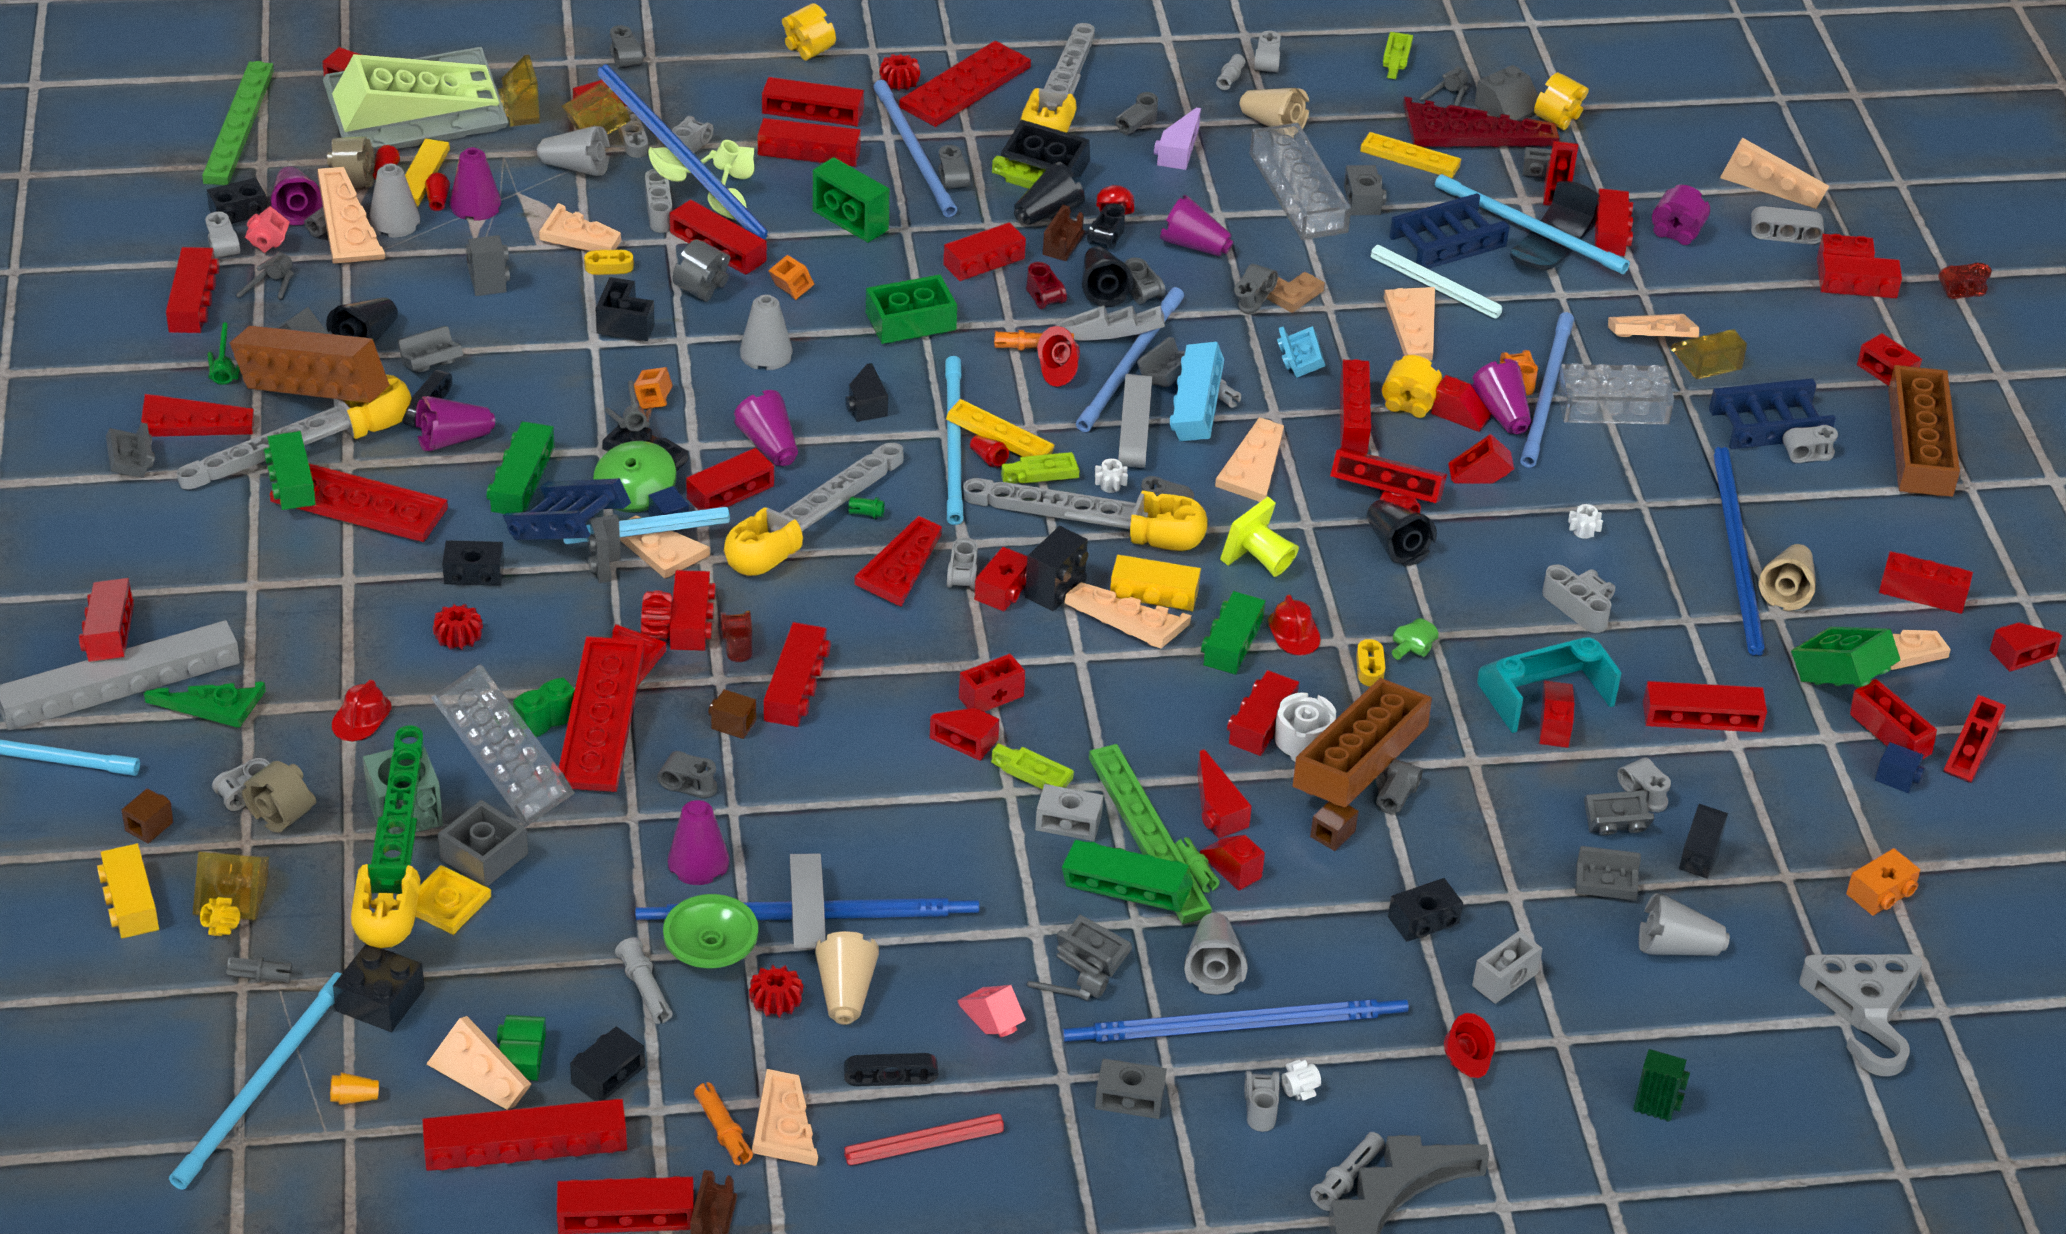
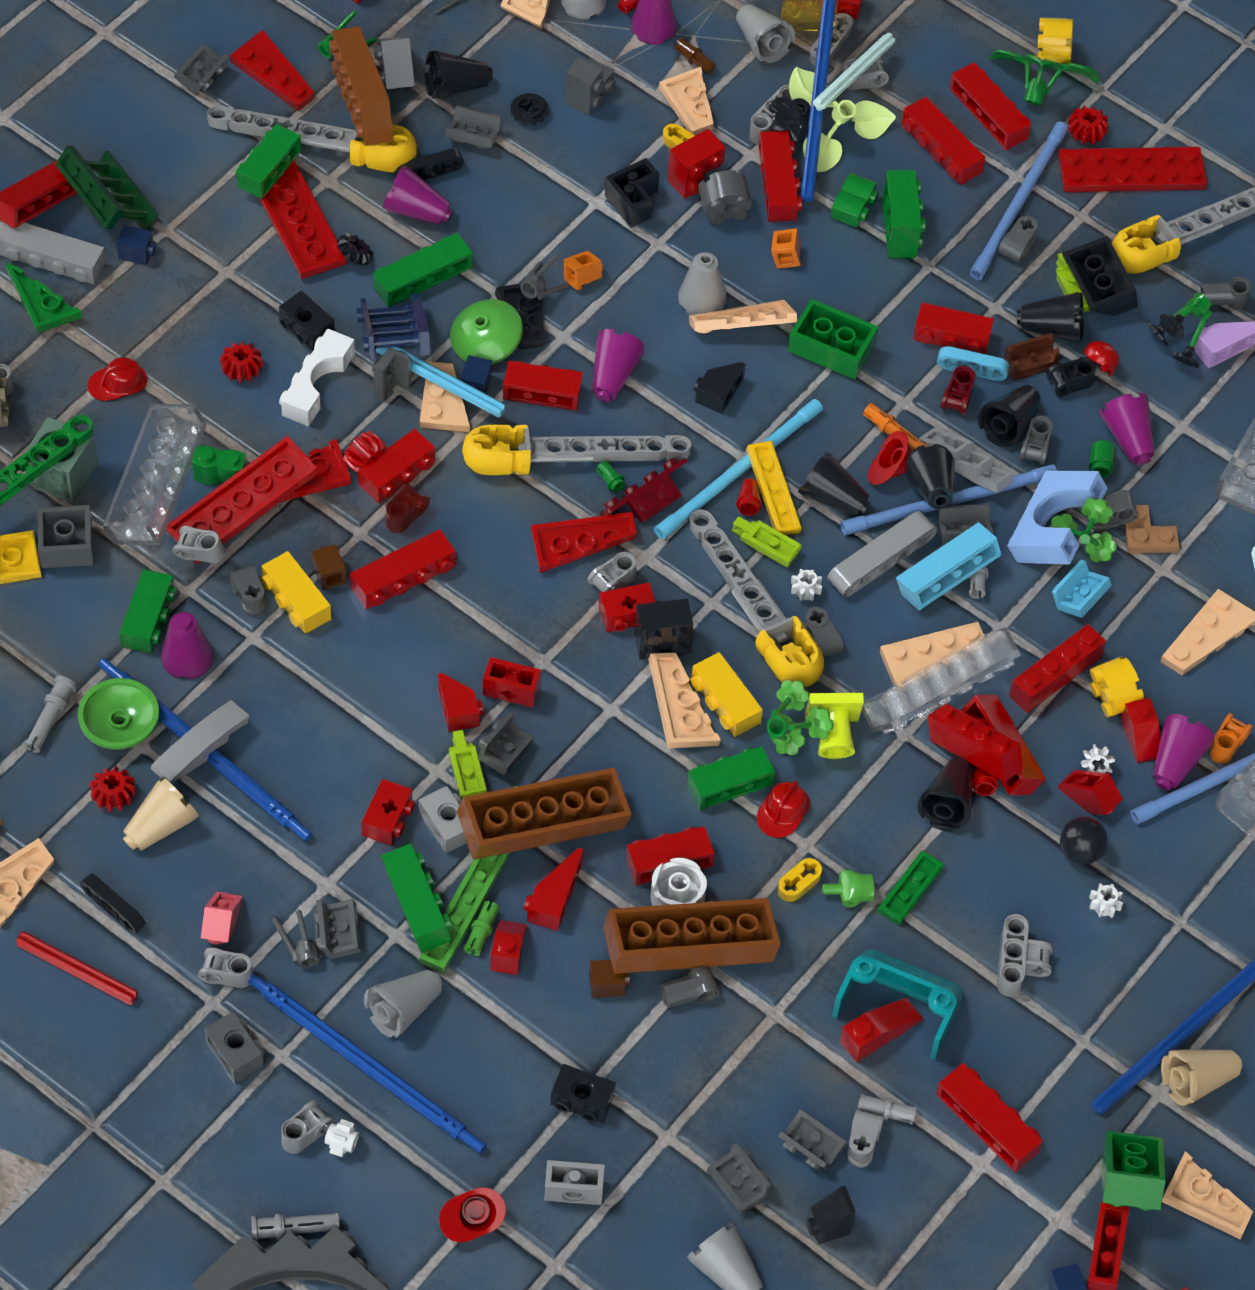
camera: 45 degrees right, 15 degrees up
(171, 577) = (97, 197): none -> dark green fence
(246, 606) = (136, 245): none -> dark blue brick
(445, 489) = (354, 249): none -> black gear
(463, 309) = (523, 103): none -> black gear
(539, 201) = (694, 55): none -> reddish brown axle
(546, 616) = (330, 354): none -> white arch
(613, 765) = (196, 544): none -> light grey piece
(626, 849) = (148, 611): none -> green brick
(649, 259) = (692, 160): none -> red brick
(681, 187) = (789, 118): none -> black plate
(693, 129) = (853, 72): none -> light aqua axle
(734, 747) = (295, 592): none -> yellow brick
(797, 217) = (854, 200): none -> green brick
(823, 337) = (746, 316): none -> light nougat wing
(837, 39) = (1036, 88): none -> green plant
(912, 496) = (651, 495): none -> dark red bracket
(1012, 268) = (987, 368): none -> medium azure beam
(1018, 841) = (387, 812): none -> red brick
(1044, 399) = (835, 487): none -> black cone
(1044, 730) = (503, 745): none -> dark grey bracket
(1045, 1040) = (221, 968): none -> light grey piece
(1110, 342) = (932, 474): none -> black cone
(1146, 744) = (543, 813): none -> dark orange brick
(1148, 142) = (1172, 325): none -> plant
(1200, 263) = (1102, 457): none -> green brick
(1208, 294) = (1055, 492): none -> light blue arch
(1257, 544) = (788, 734): none -> bright green plant
(1272, 312) = (1098, 545): none -> bright green plant
(1298, 460) = (940, 681): none -> clear brick
(1377, 479) = (975, 742): none -> red brick
(1449, 612) = (910, 888): none -> green tile
(1460, 440) = (1097, 754): none -> white gear
(1524, 492) = (1083, 840): none -> black piece
(1633, 753) = (887, 1108): none -> light grey pin

